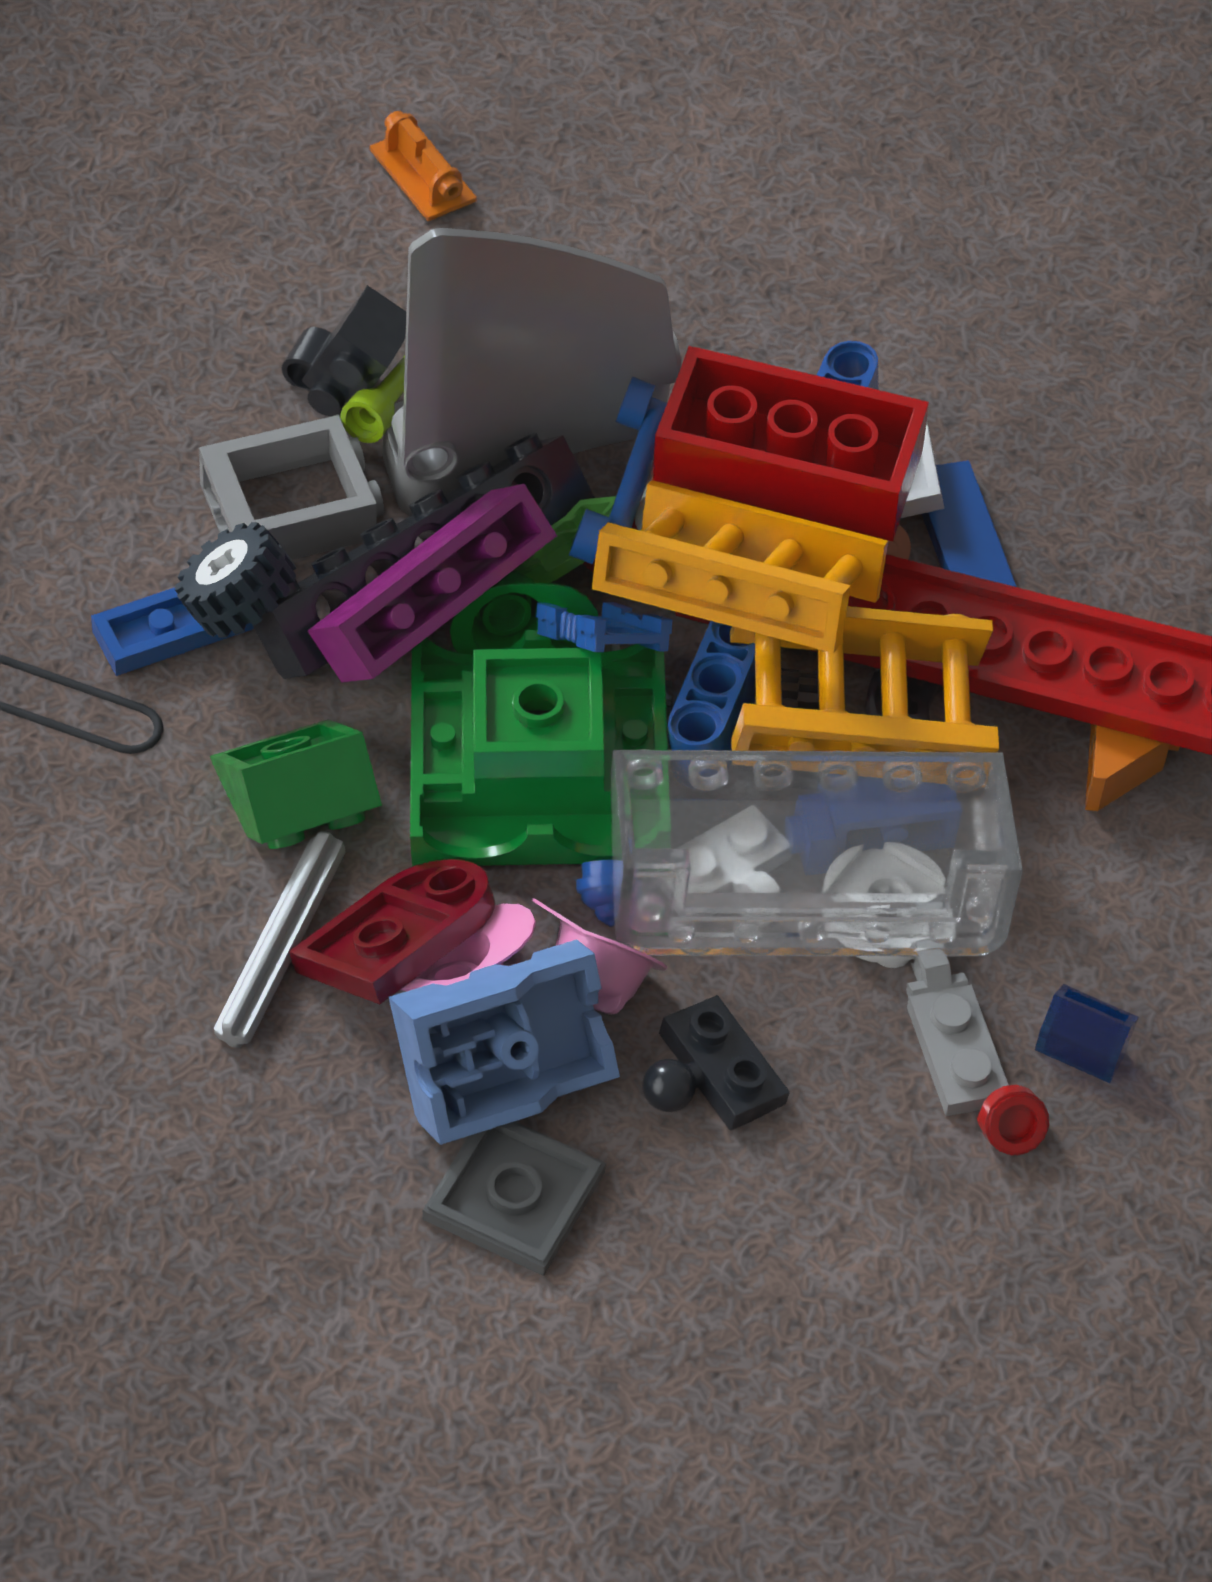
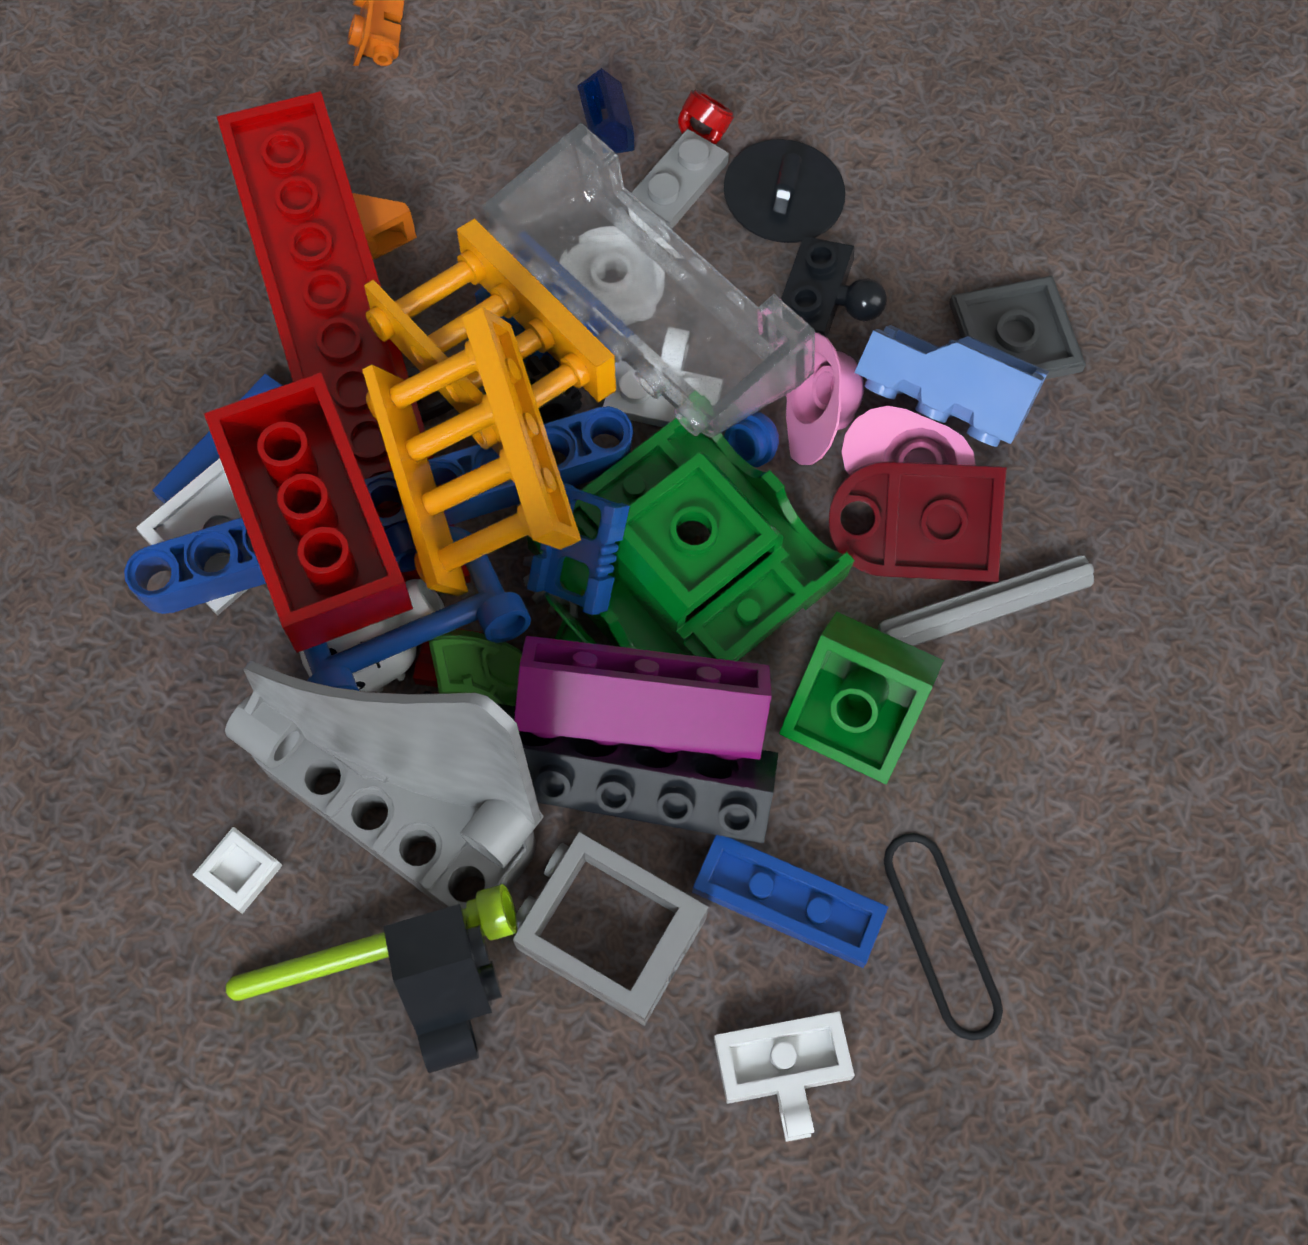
camera: 125 degrees left, 15 degrees up
(78, 530) = (785, 1062): none -> white plate
(235, 579) = (747, 834): black wheel -> none
(420, 168) = (139, 1150): orange hinge -> none
(865, 1132) = (784, 190): none -> black shield

